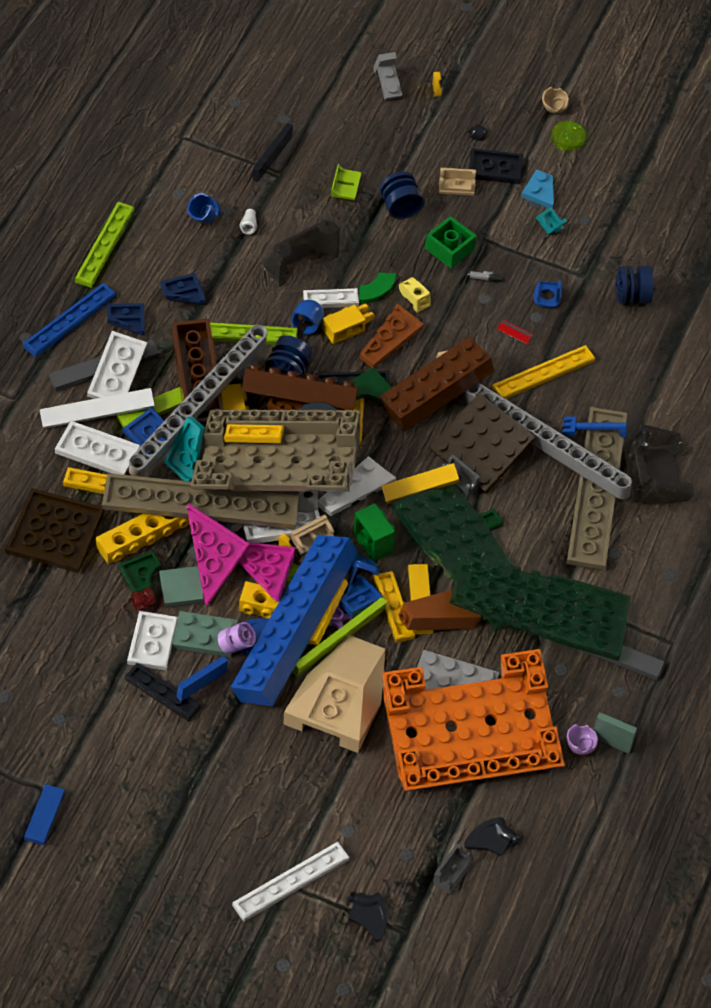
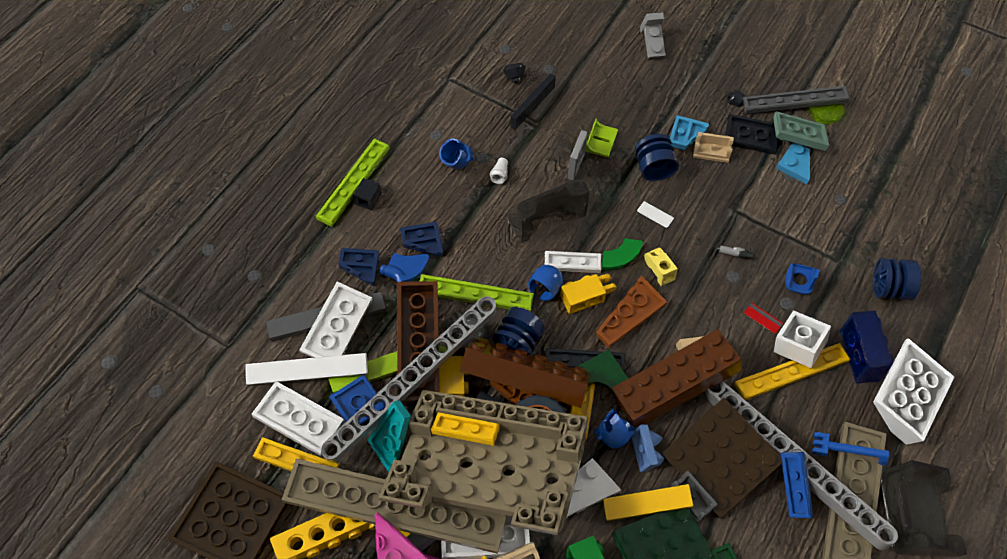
camera: 10 degrees right, 5 degrees up
(69, 320) = (301, 261): blue tile -> none
(122, 253) = (367, 194): none -> black brick
(167, 314) = (405, 267): none -> blue arm
(250, 124) = (514, 72): none -> black cone
(324, 198) = (577, 155): none -> light grey tile
(385, 431) = (614, 430): none -> blue helmet
(406, 249) = (655, 214): none -> white sticker
(413, 443) = (644, 443): none -> medium blue tile
(428, 169) = (686, 131): none -> dark azure wing
(436, 84) = (698, 47): yellow tile -> none
(450, 242) = (702, 212): green brick -> none
(536, 129) = (796, 99): none -> dark grey tile
(542, 158) = (800, 131): none -> sand green plate
(547, 455) = (797, 484): none -> blue tile
(549, 342) = (802, 339): none -> white brick
(550, 221) = (806, 198): teal bracket -> none
(555, 100) = (815, 72): tan hair -> none
(607, 343) = (866, 346): none -> clear blue brick
(646, 375) = (912, 393): none -> white slope

